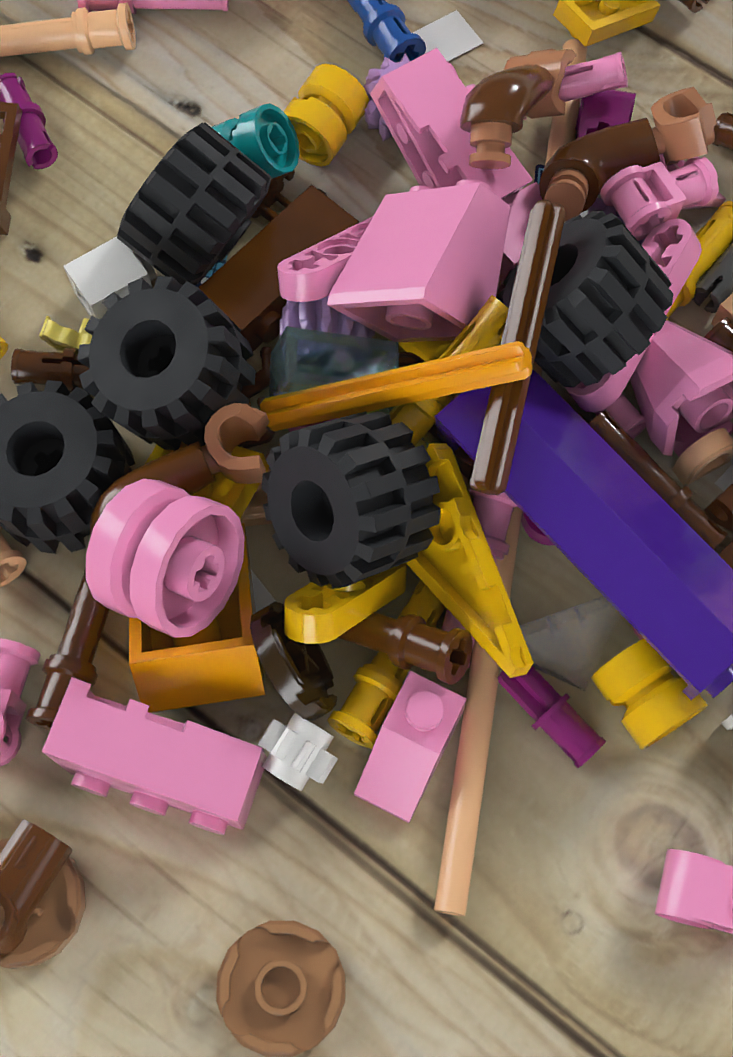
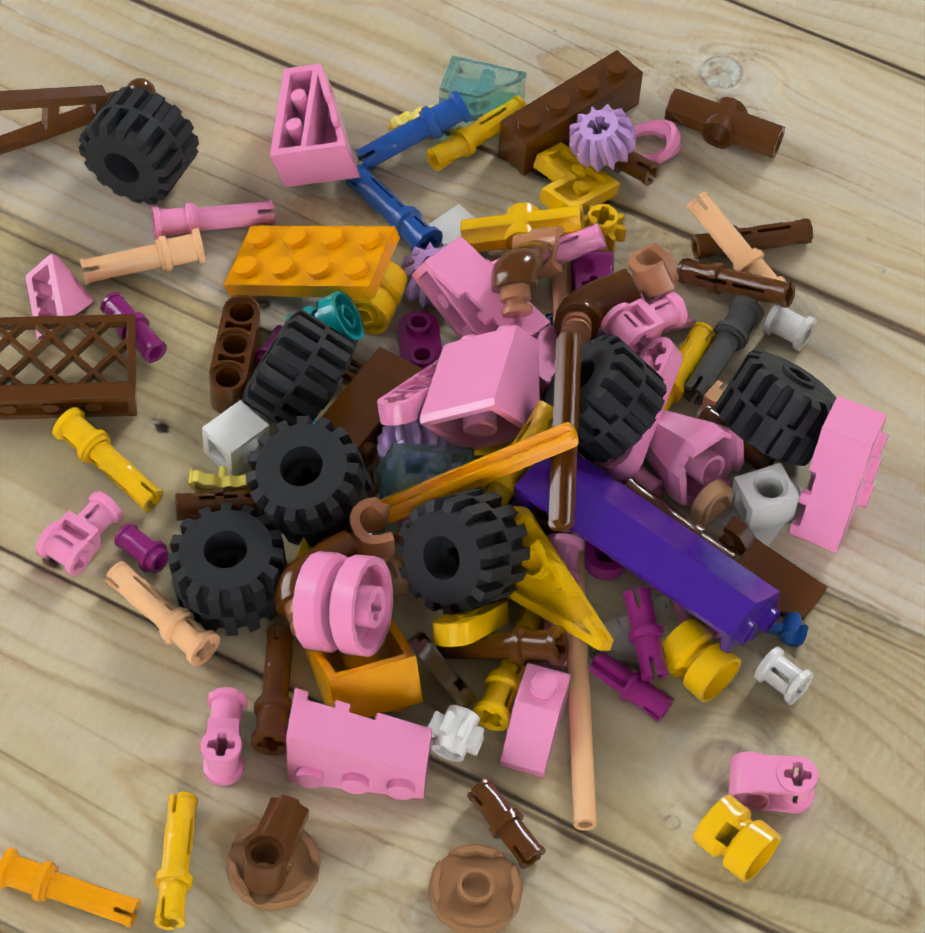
camera: 15 degrees left, 15 degrees down
(138, 147) = (234, 351): none -> reddish brown beam
(256, 61) = (312, 261): none -> light orange plate
(341, 896) = (506, 823): none -> reddish brown pin
(368, 183) = (419, 342): none -> magenta plate
(490, 48) = (498, 231): none -> yellow piece
(582, 651) = (646, 634): none -> magenta pin
(637, 55) = (609, 222): none -> yellow gear
(663, 1009) = (748, 849): none -> yellow wheel

